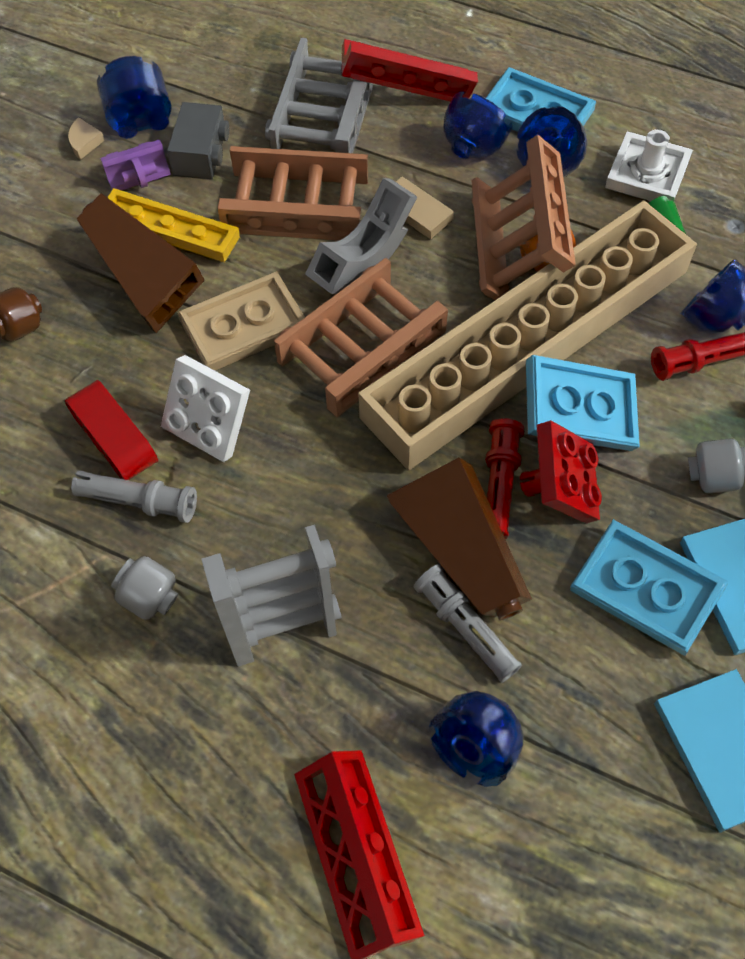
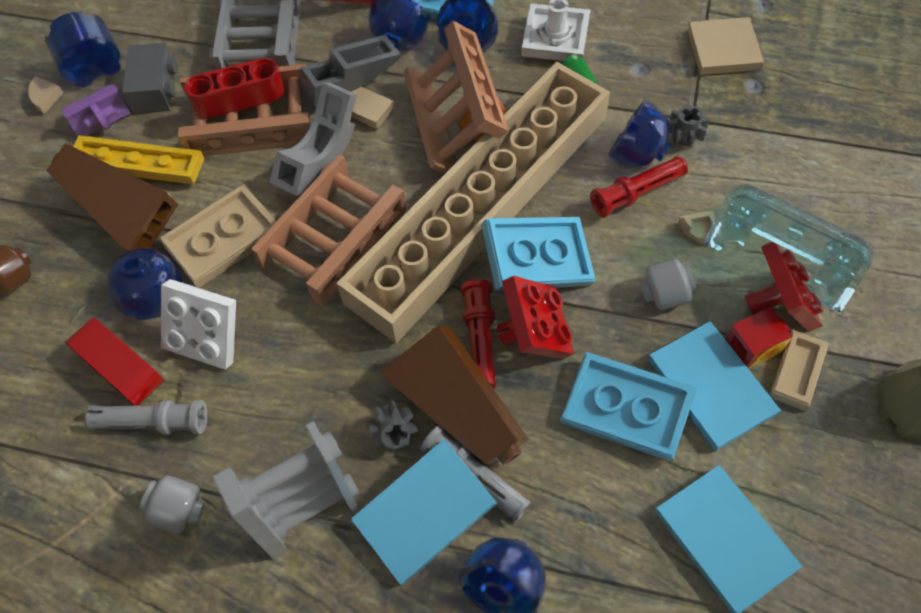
camera: 10 degrees left, 0 degrees up
(149, 354) = (137, 280): none -> clear blue cylinder
(287, 167) = (234, 88): none -> red beam
(388, 555) = (391, 426): none -> dark grey gear
(406, 649) = (423, 511): none -> medium azure tile
(414, 165) = (349, 66): none -> dark grey slope

